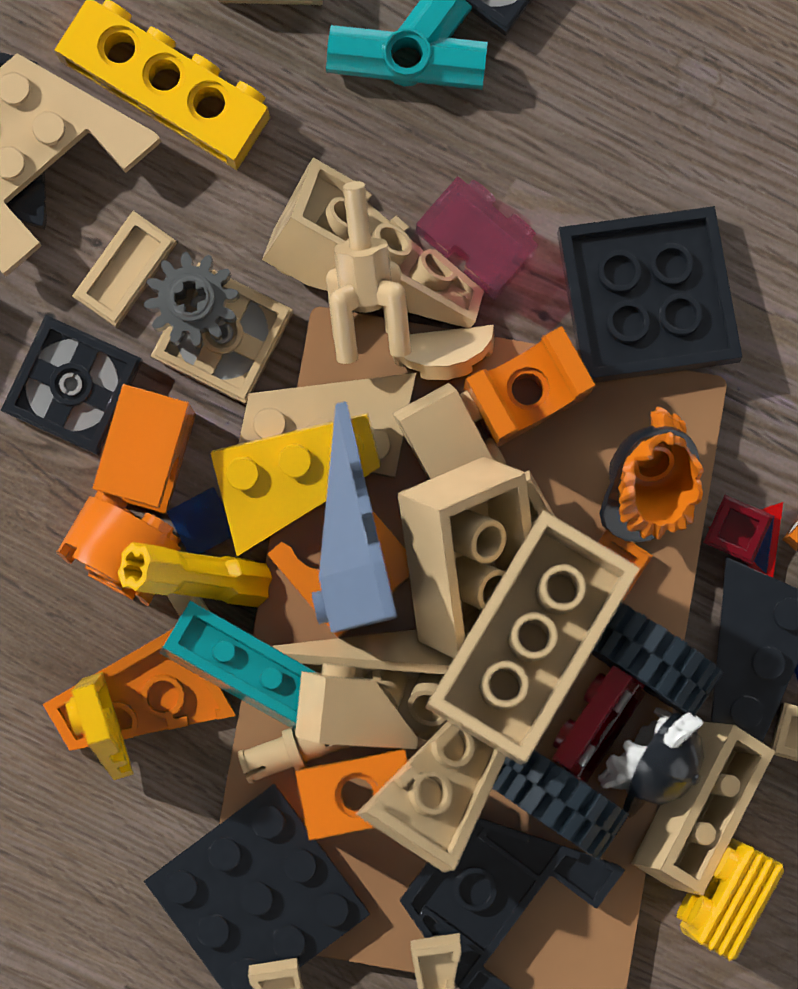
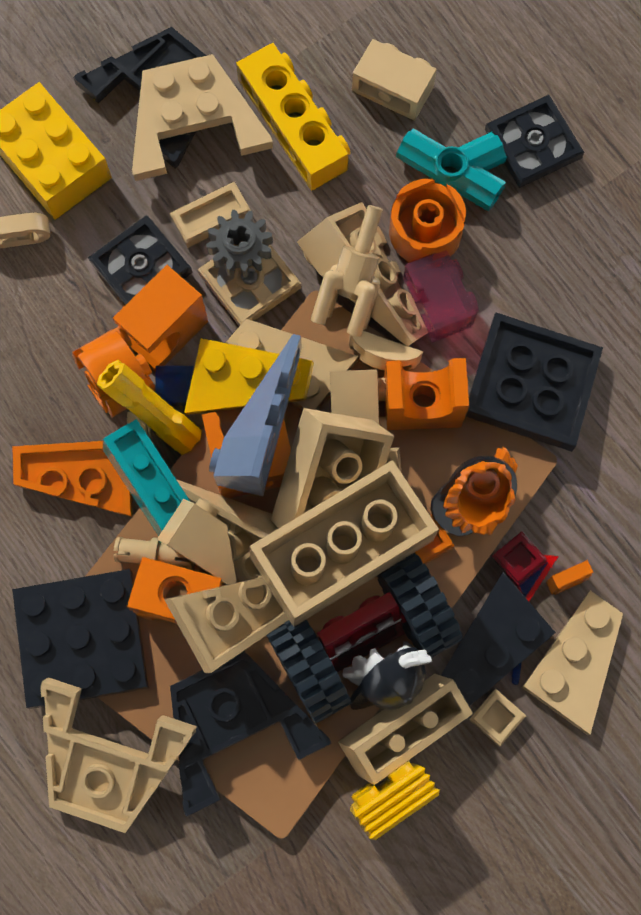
camera: 30 degrees right, 10 degrees down
(94, 714) = (36, 464): yellow wing -> none
(410, 120) = (426, 220): none -> orange brick

